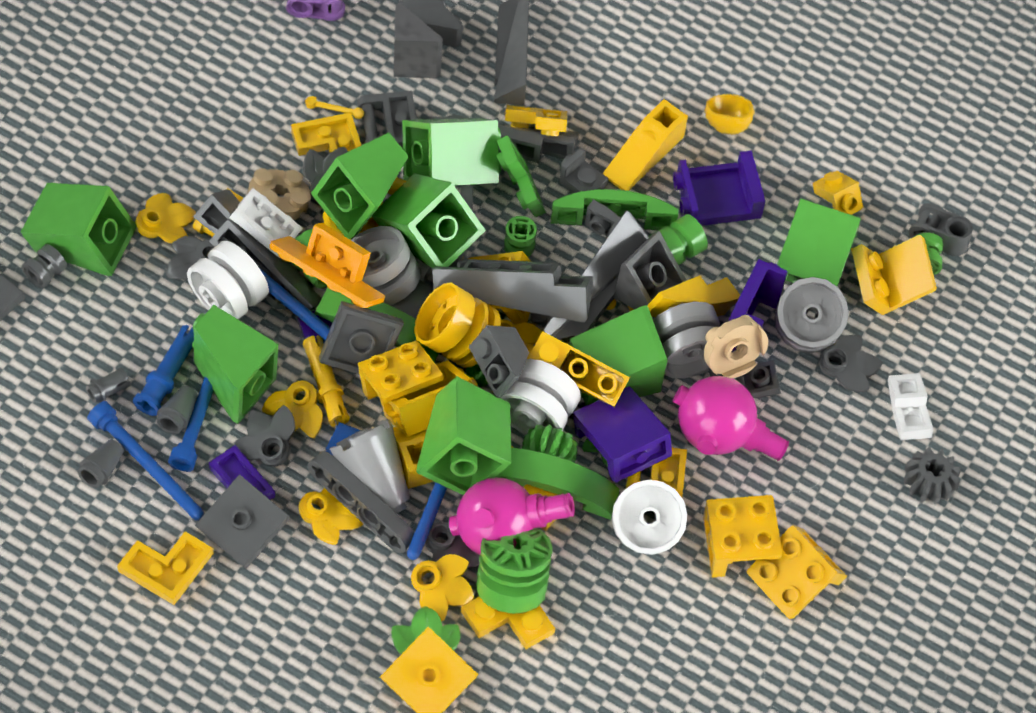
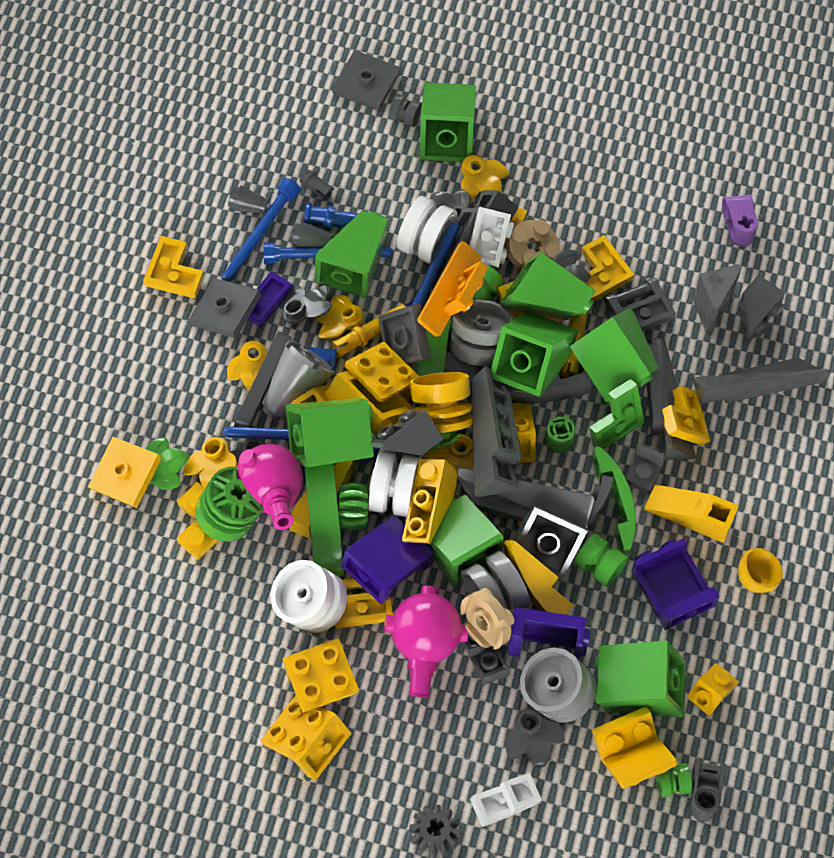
camera: 80 degrees right, 5 degrees up
(311, 103) = (638, 248): yellow hinge -> none

